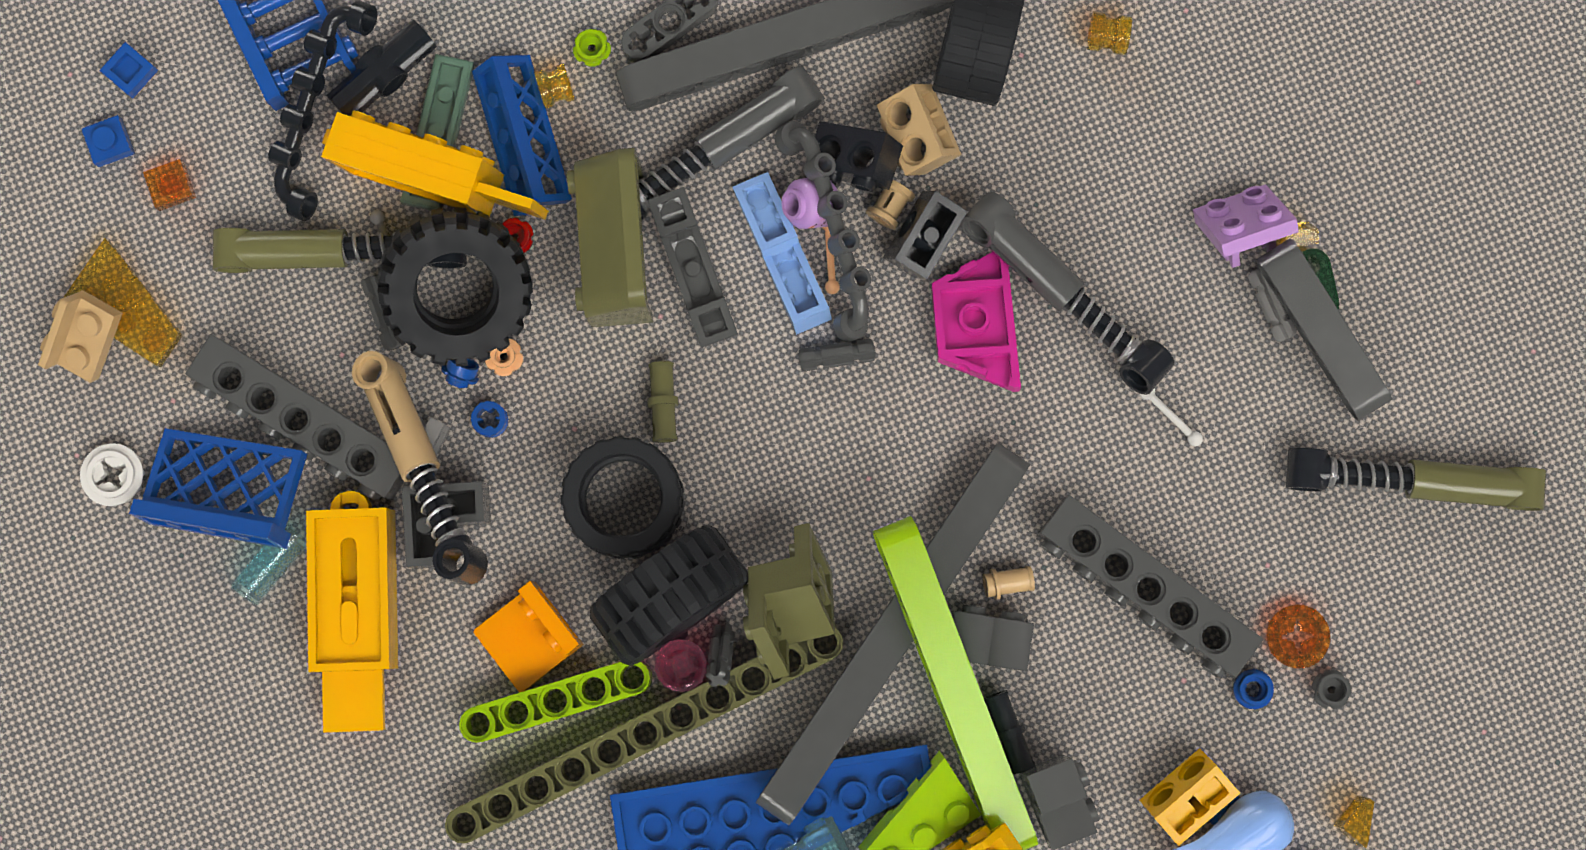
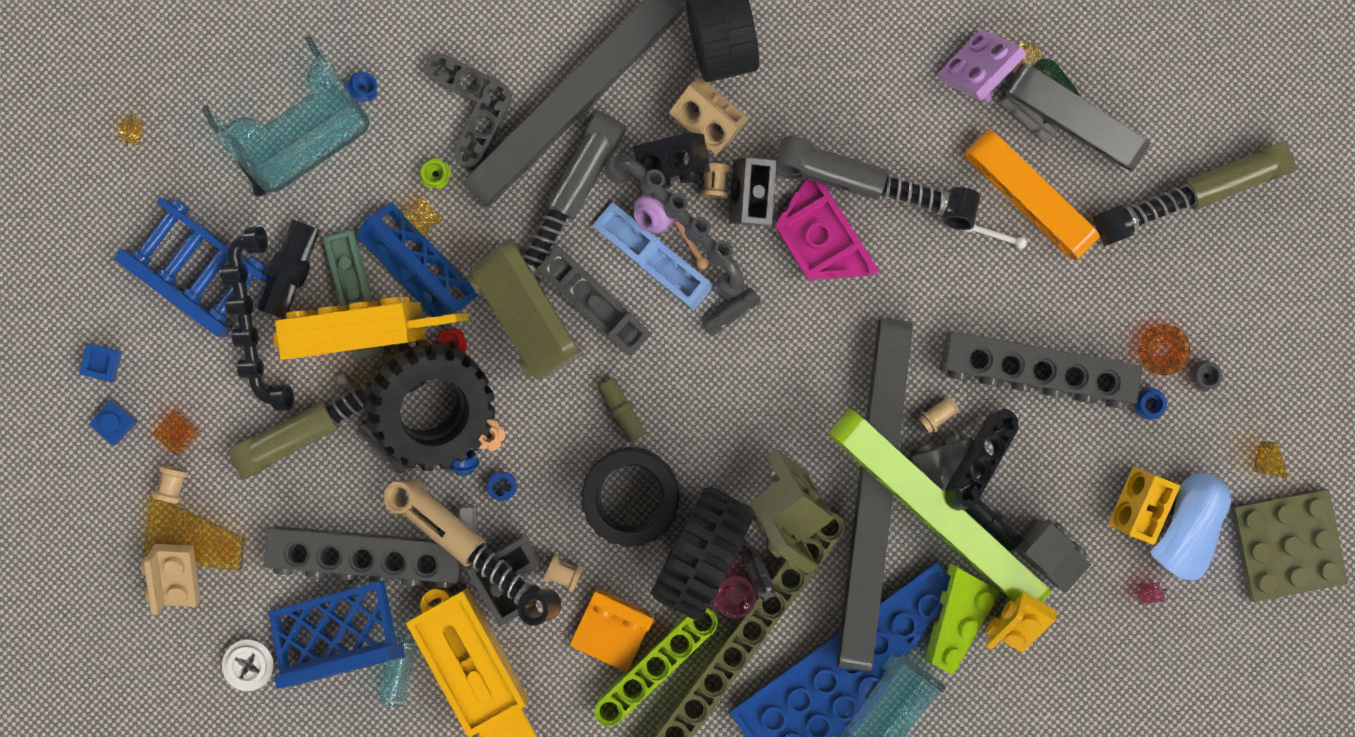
camera: 30 degrees left, 5 degrees up
(133, 236) = (170, 484): none -> tan bush
(506, 548) = (563, 573): none -> tan bush
(1034, 657) = (987, 463): none -> black beam
(1233, 392) = (1032, 195): none -> light orange beam

